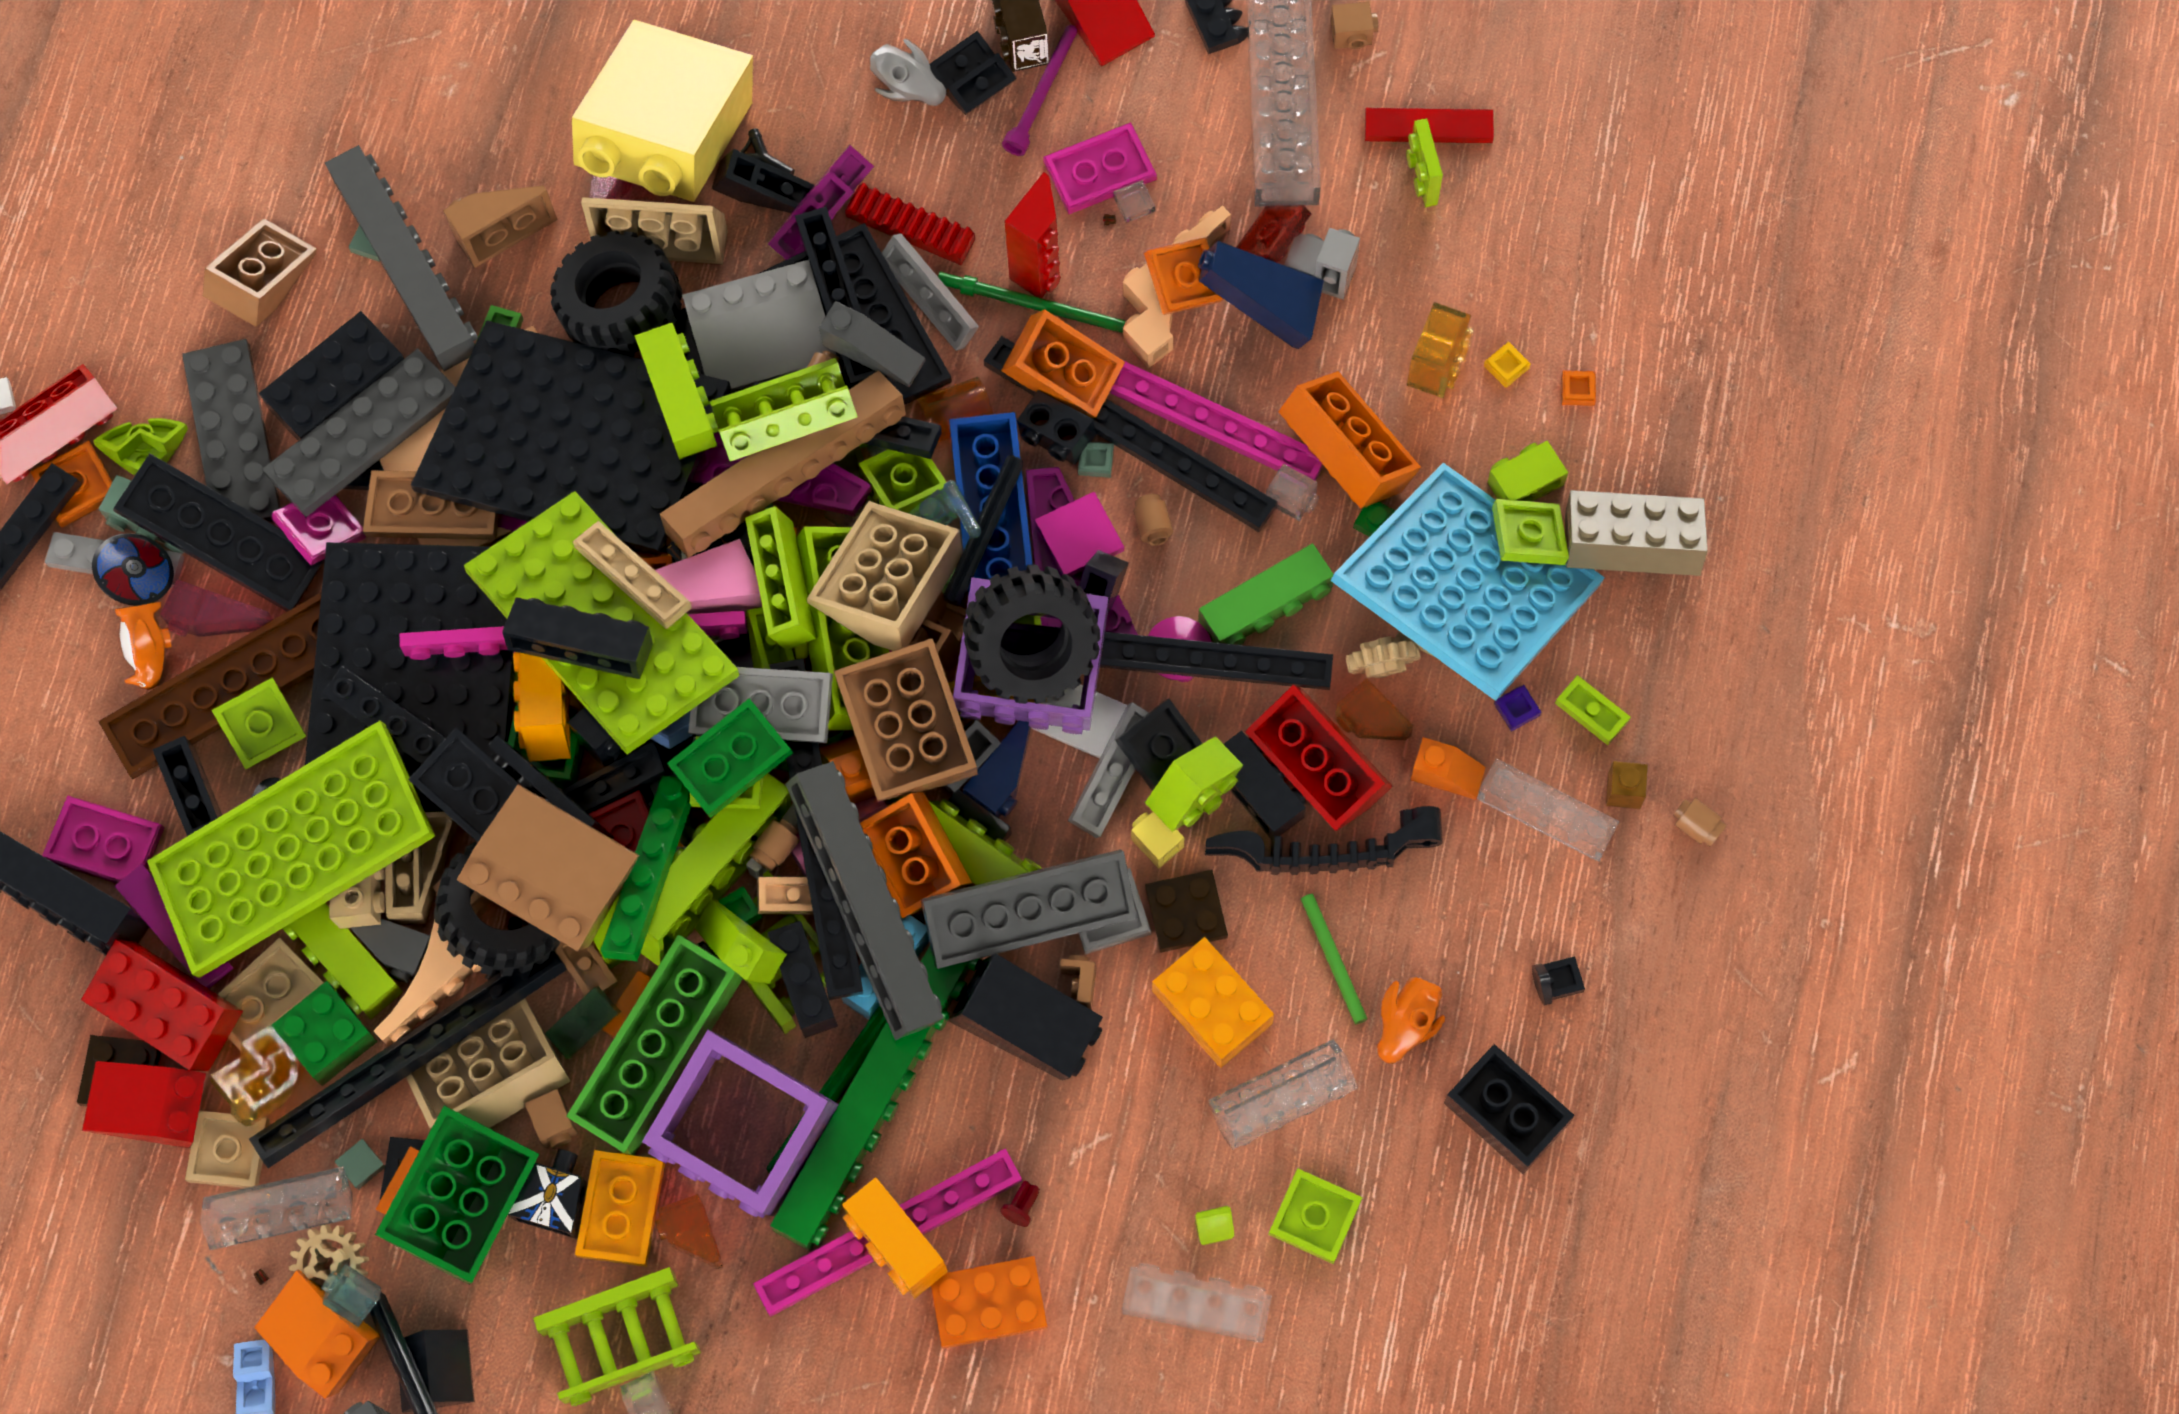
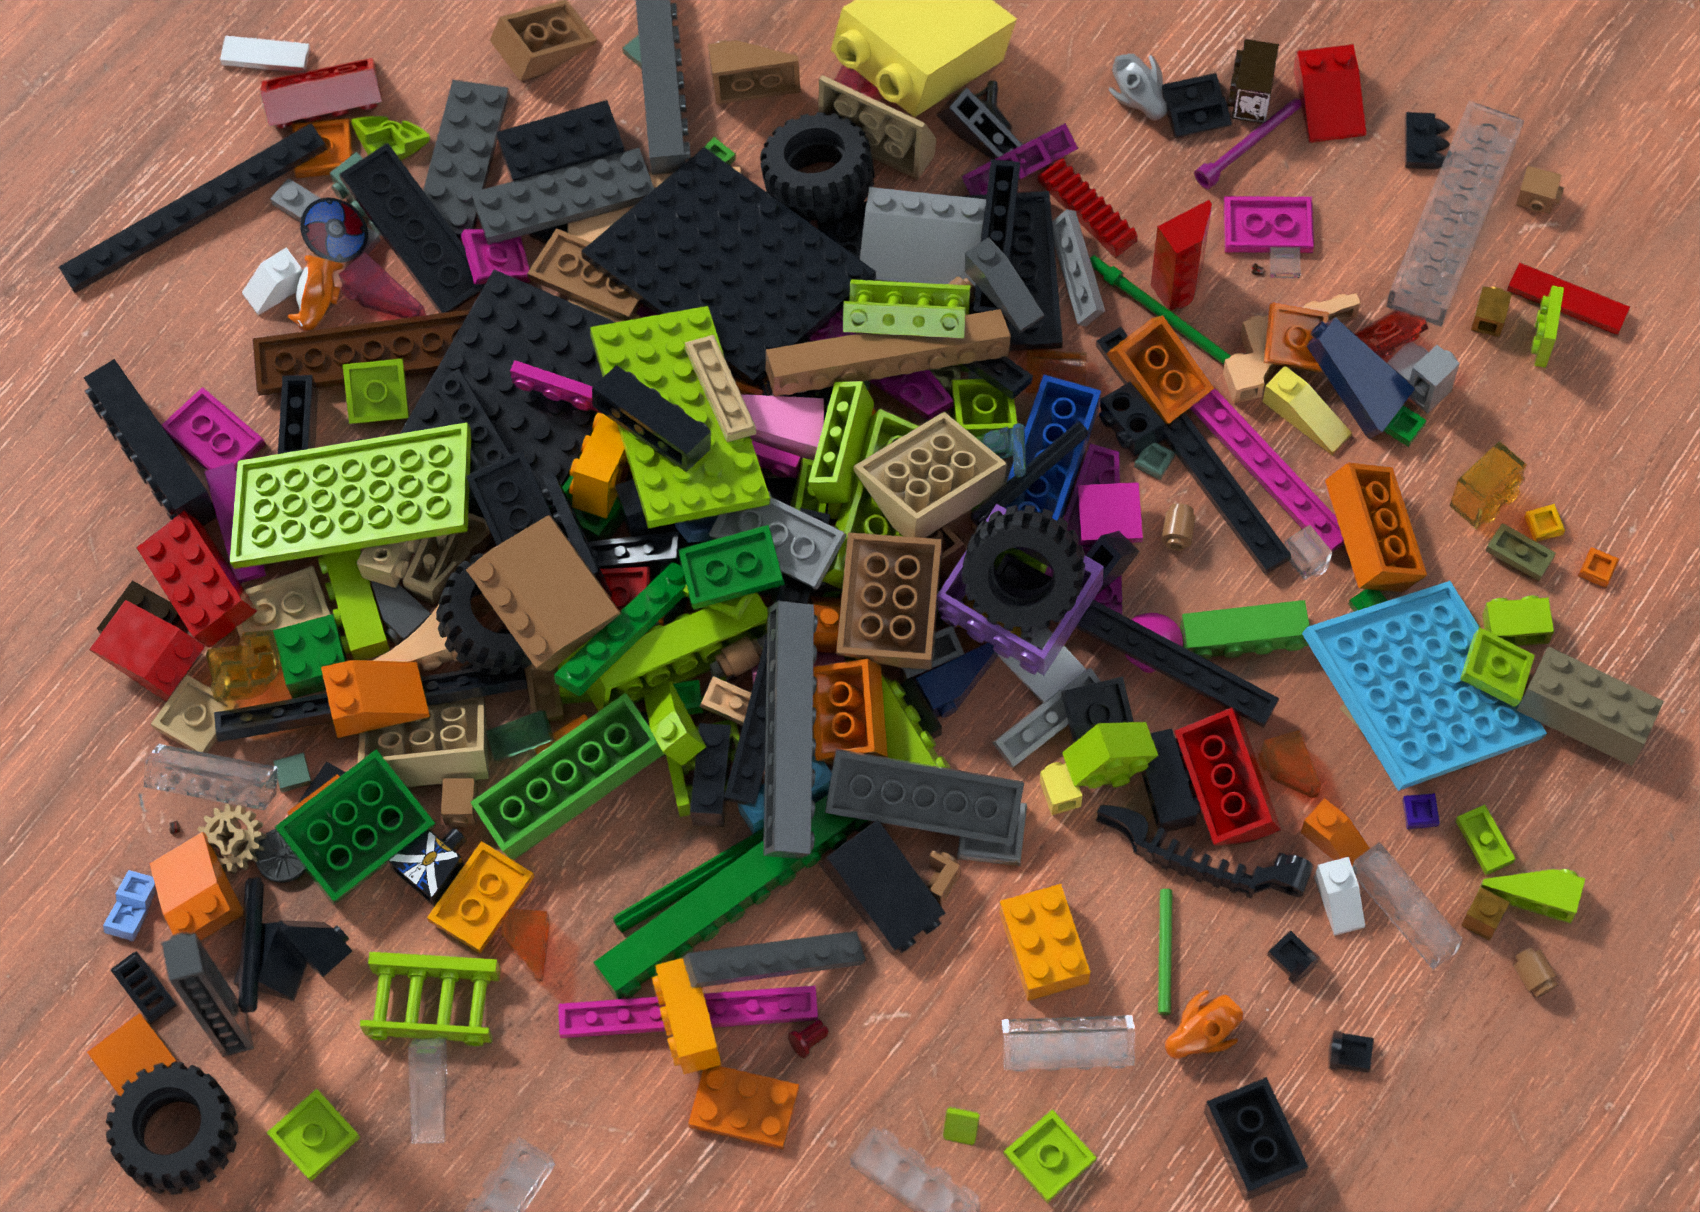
camera: 25 degrees right, 5 degrees down
(91, 651) = (273, 281): none -> white slope
(350, 1294) = (234, 868): clear light blue brick -> none
(388, 1264) = (277, 859): none -> dark grey wheel
(412, 1048) = (373, 695): none -> orange slope
(473, 1332) = (317, 943): none -> black slope
(676, 390) = (827, 259): lime brick -> none
(770, 1196) = (637, 912): medium lavender window -> none
(954, 1142) = (773, 959): none -> dark grey plate
(1186, 910) = (1058, 857): dark brown plate -> none
(1224, 346) = (1305, 410): none -> light yellow slope
(1330, 322) = (1405, 426): none -> green plate
(1361, 169) = (1491, 311): none -> pearl gold brick
(1383, 657) = (1320, 718): tan gear -> none
(1460, 908) = (1293, 957): none -> black tile
(1479, 827) = (1340, 895): none -> white slope
(1498, 404) = (1520, 552): none -> olive plate
(1674, 738) = (1543, 892): none -> lime slope

